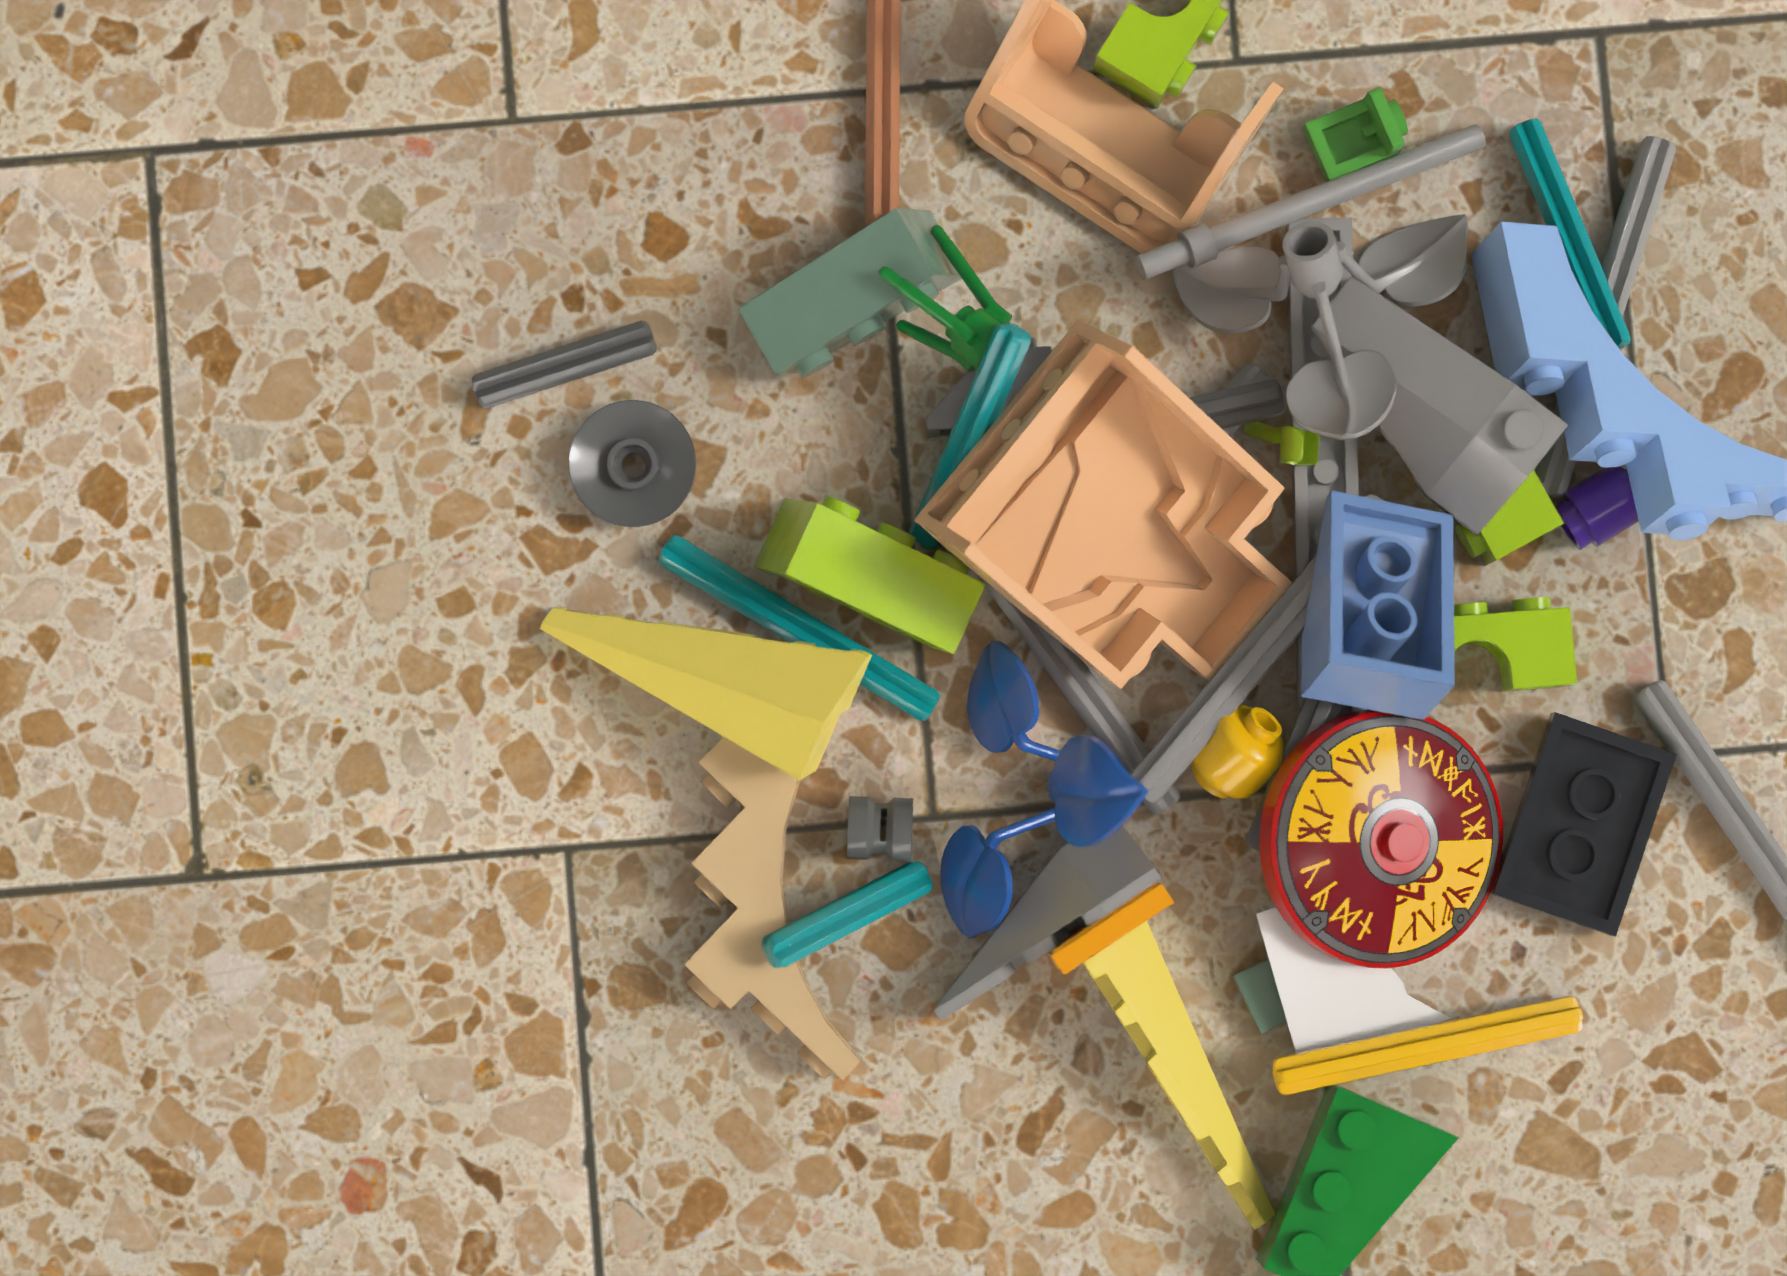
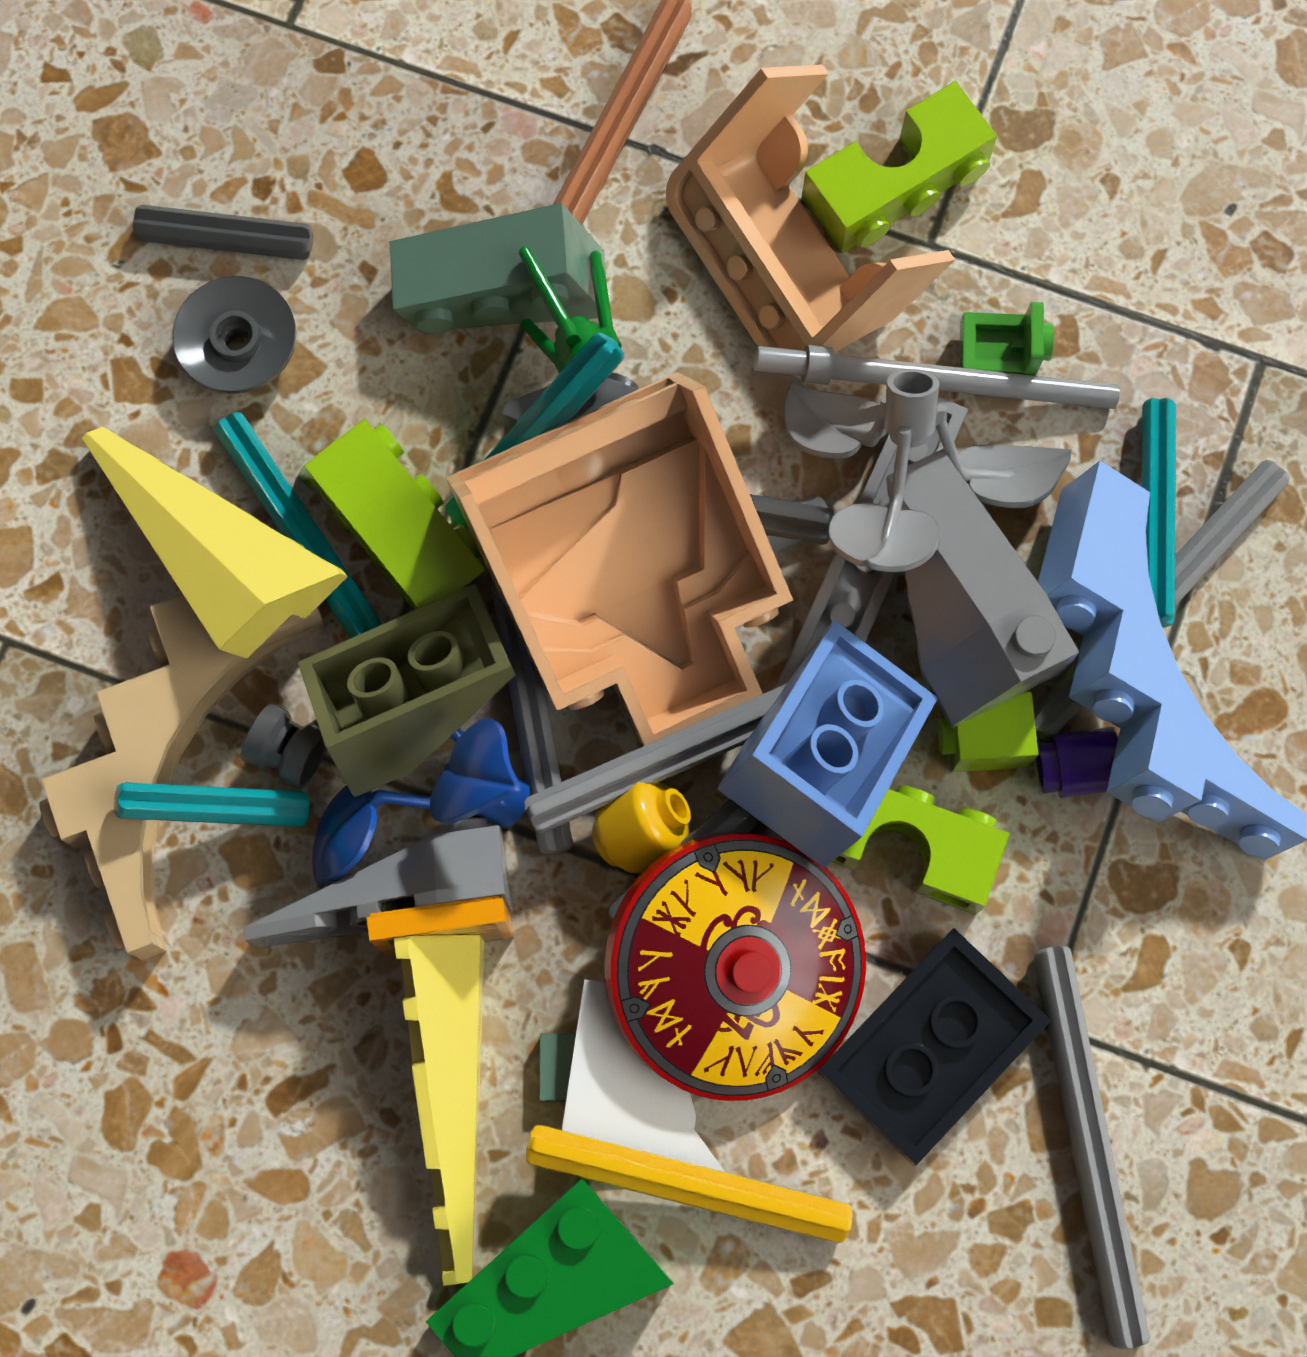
camera: 20 degrees right, 10 degrees down
(973, 727) = (405, 687): none -> olive slope
(1296, 445) = (823, 578): lime hand -> none

